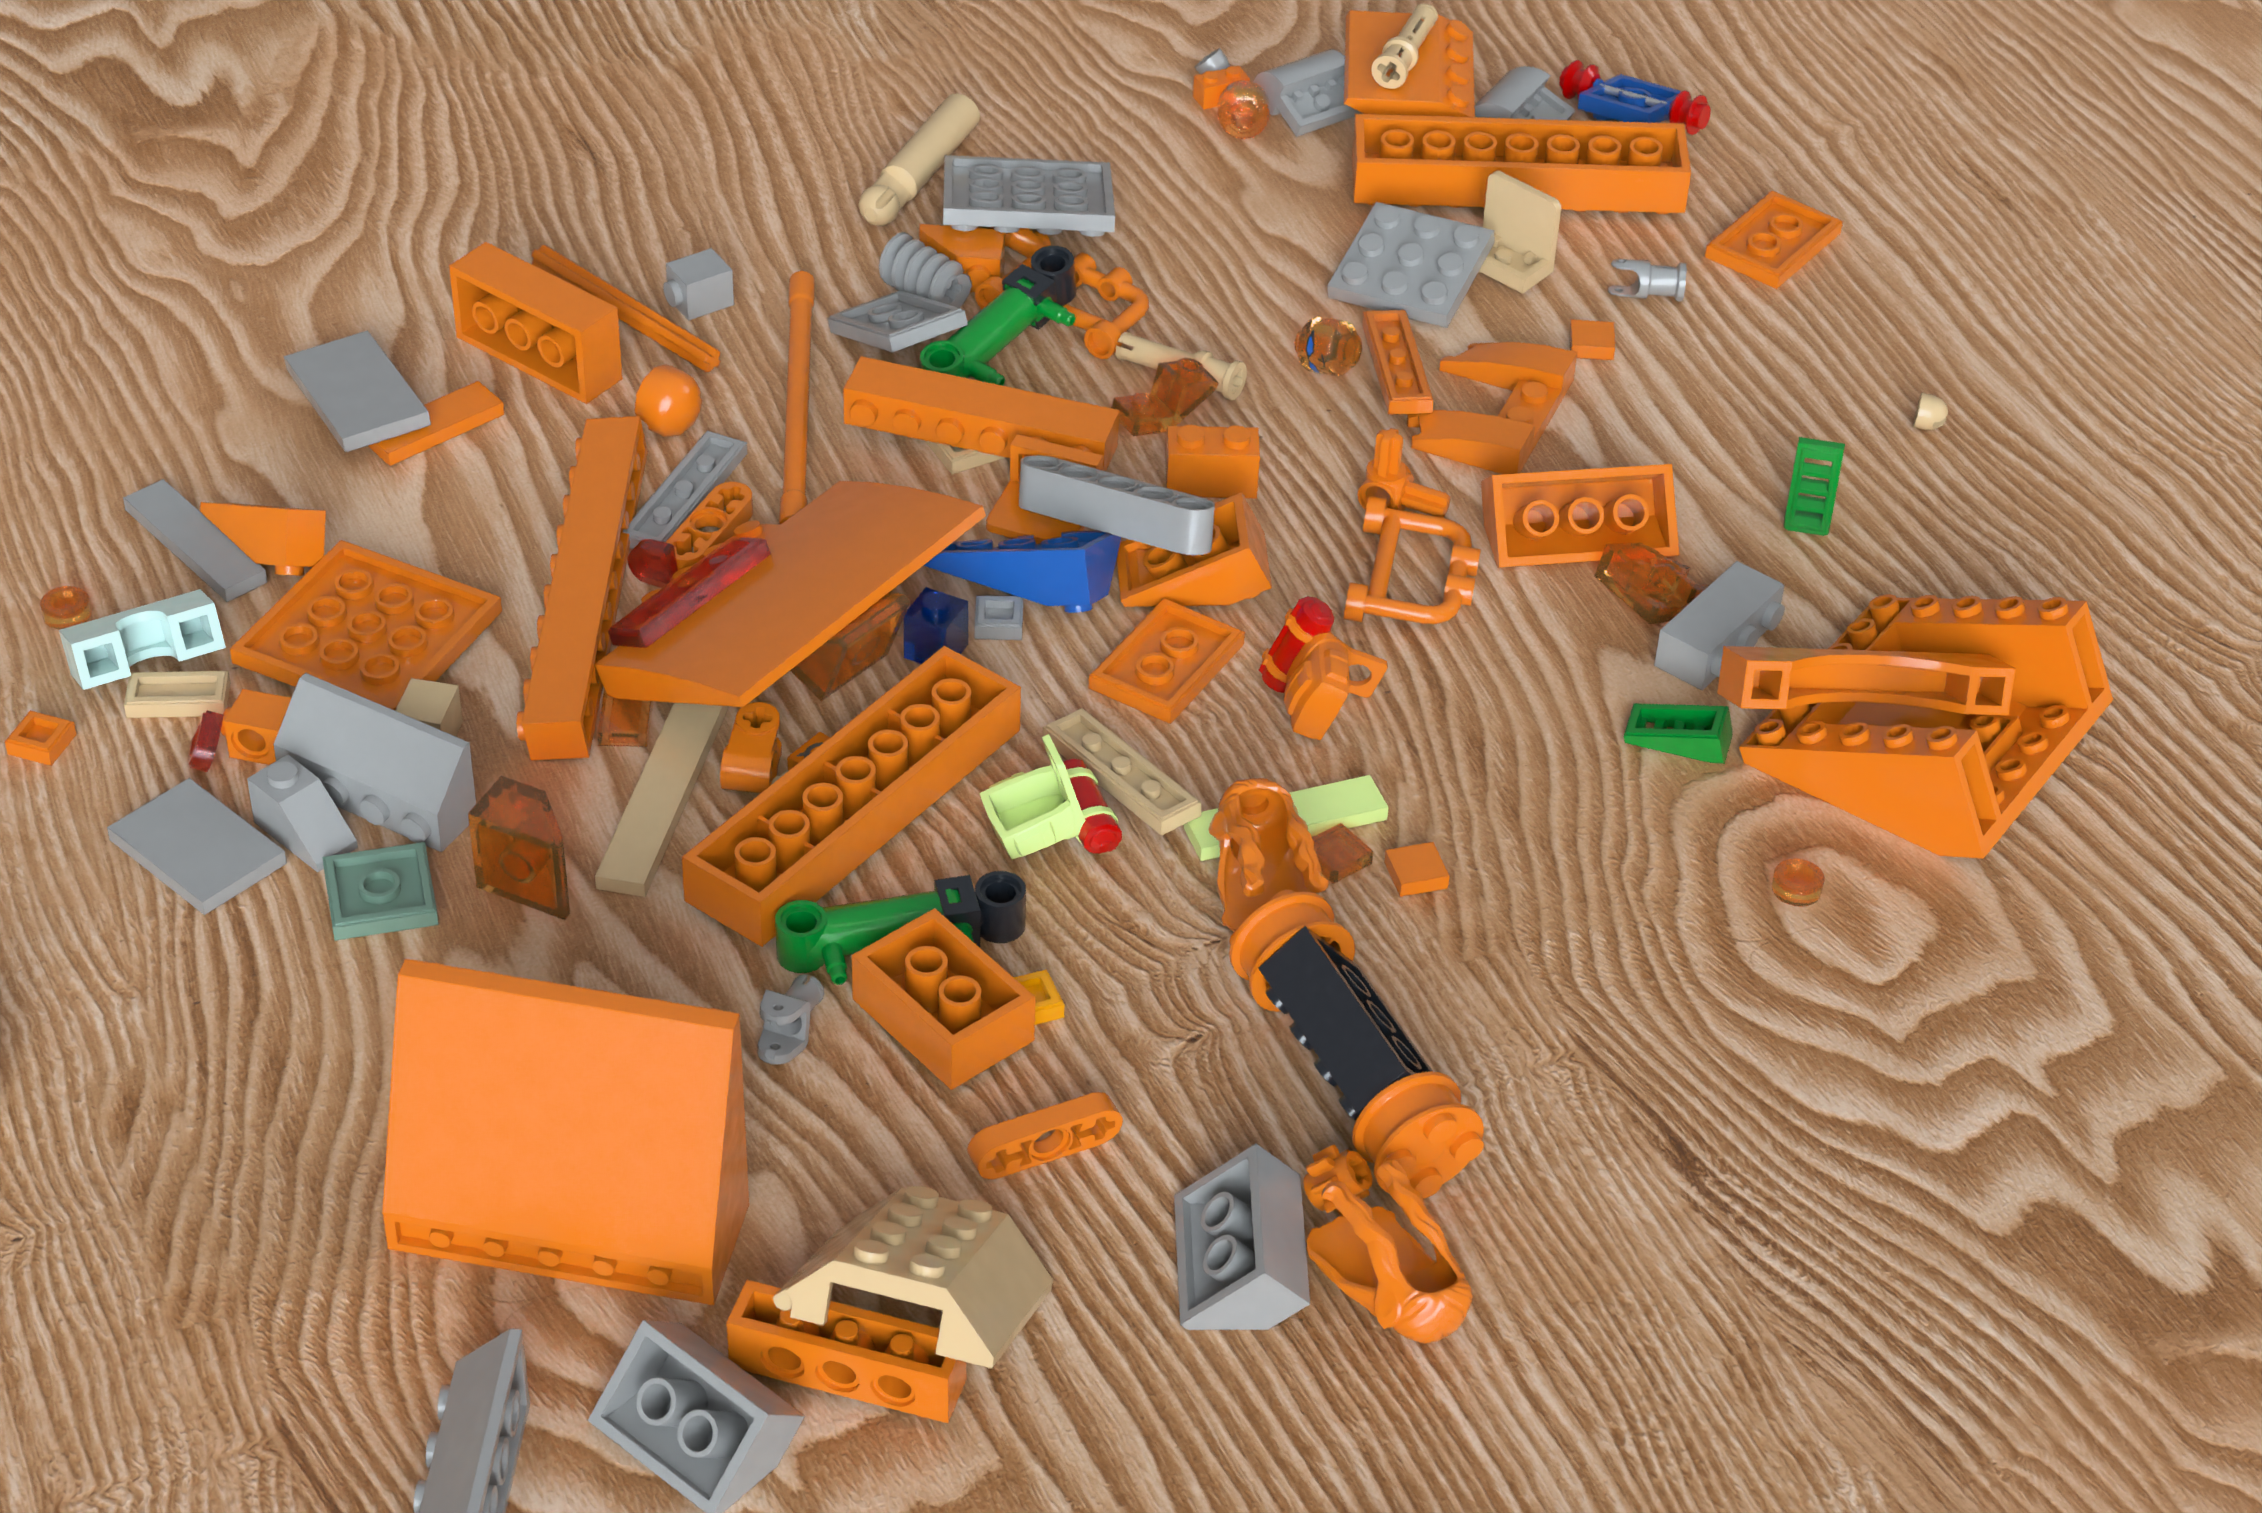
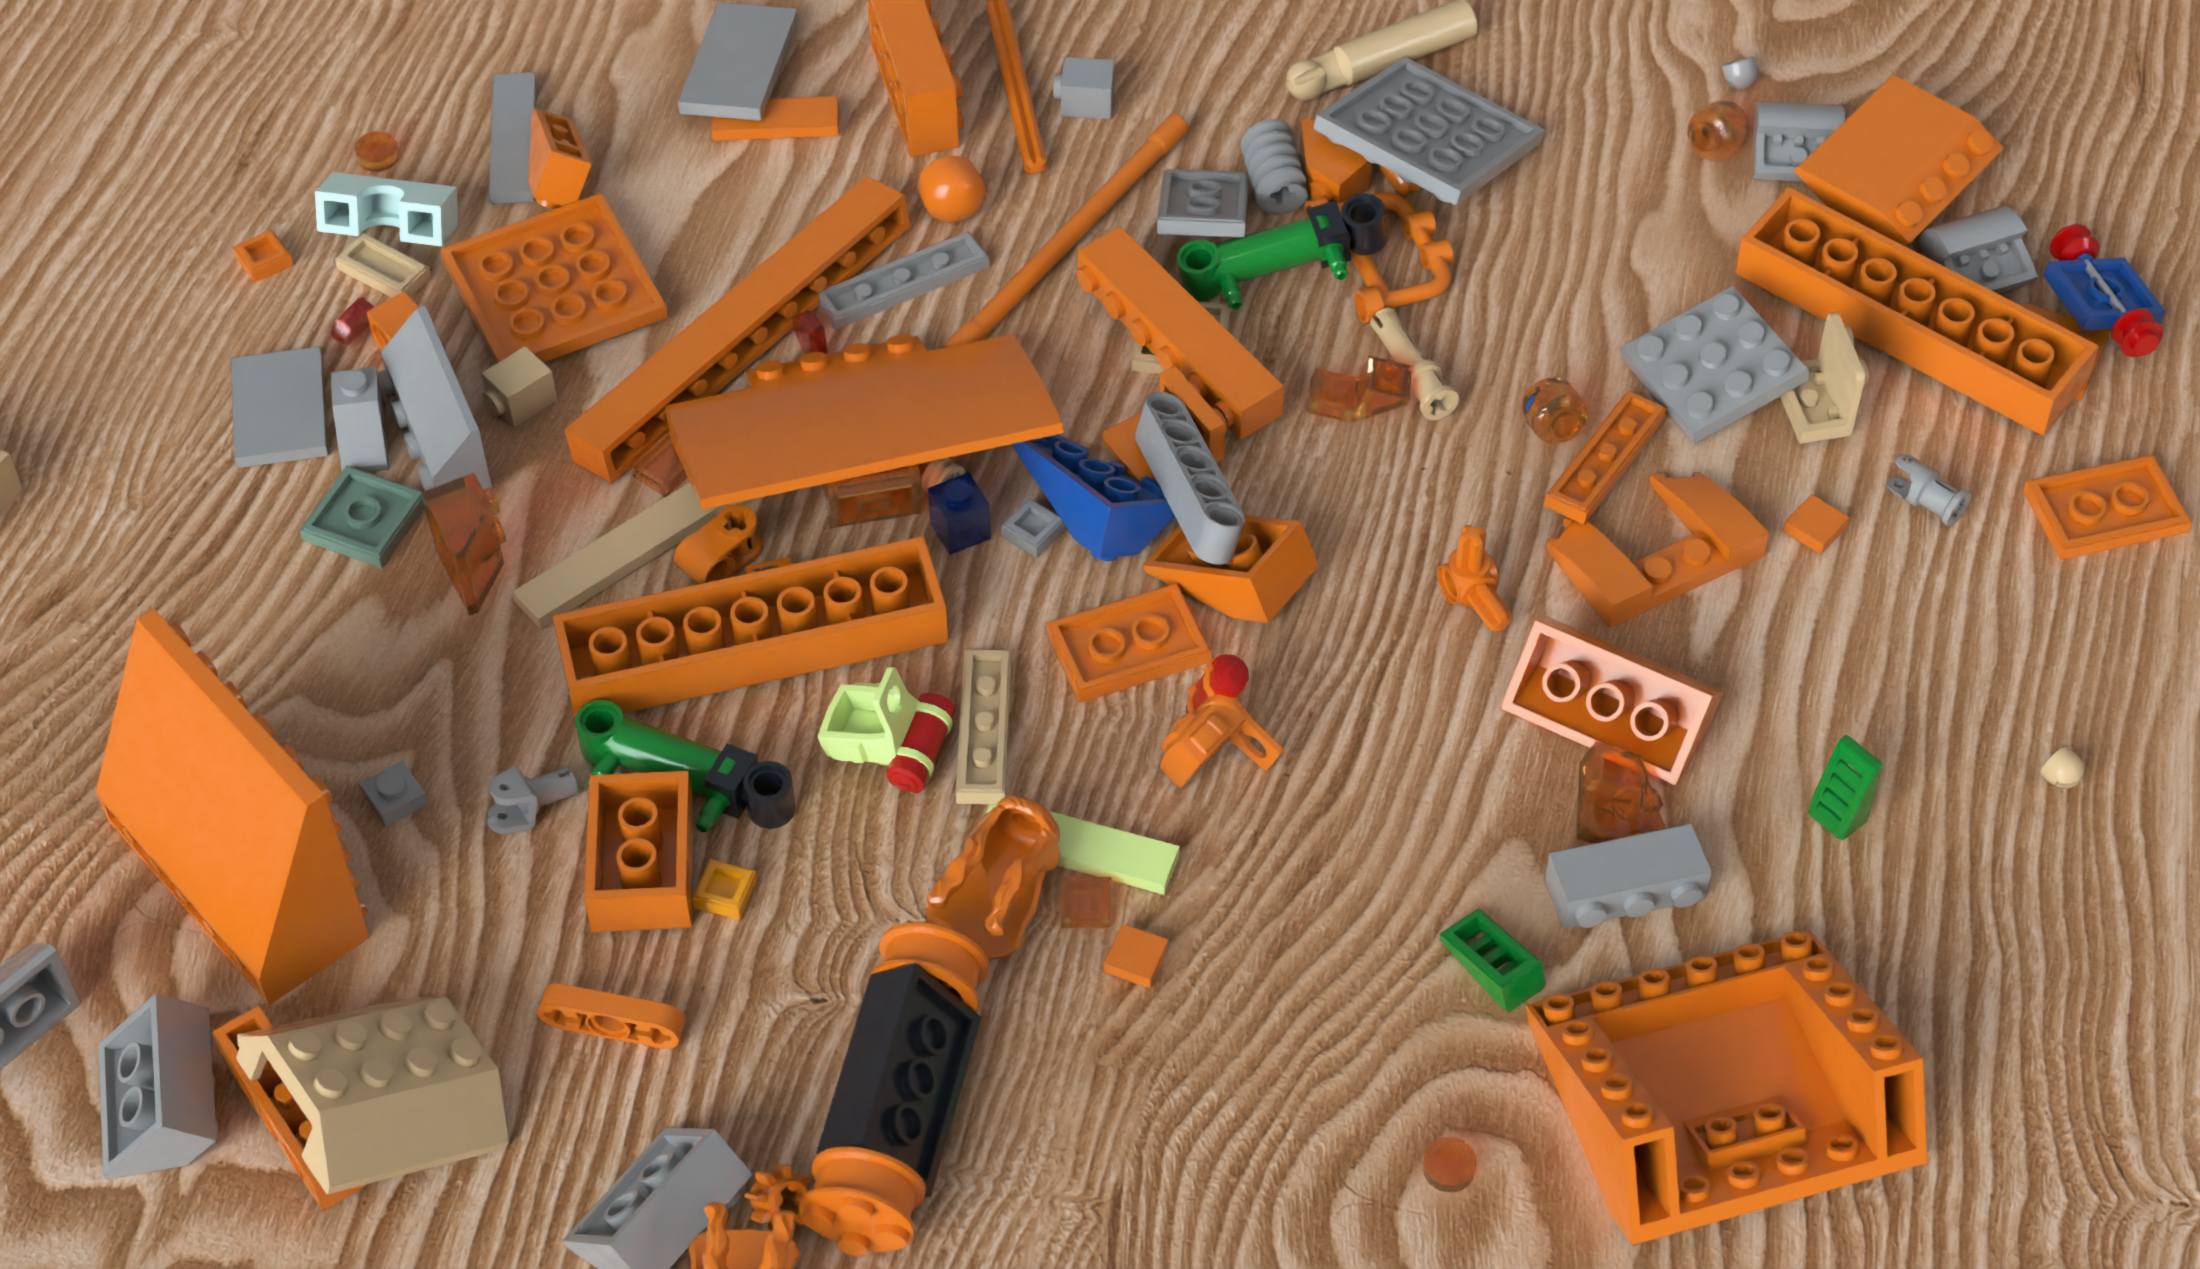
camera: 40 degrees right, 10 degrees up
(688, 592) = (787, 378): clear red tile -> none
(711, 513) = (911, 303): orange beam -> none
(1210, 84) = (1734, 90): orange piece -> none
(1212, 460) = (1343, 471): orange slope -> none
(1387, 524) = (1435, 708): orange bar -> none
(1416, 31) = (1880, 143): tan pin -> none
(1921, 679) = (1756, 1053): orange arch -> none

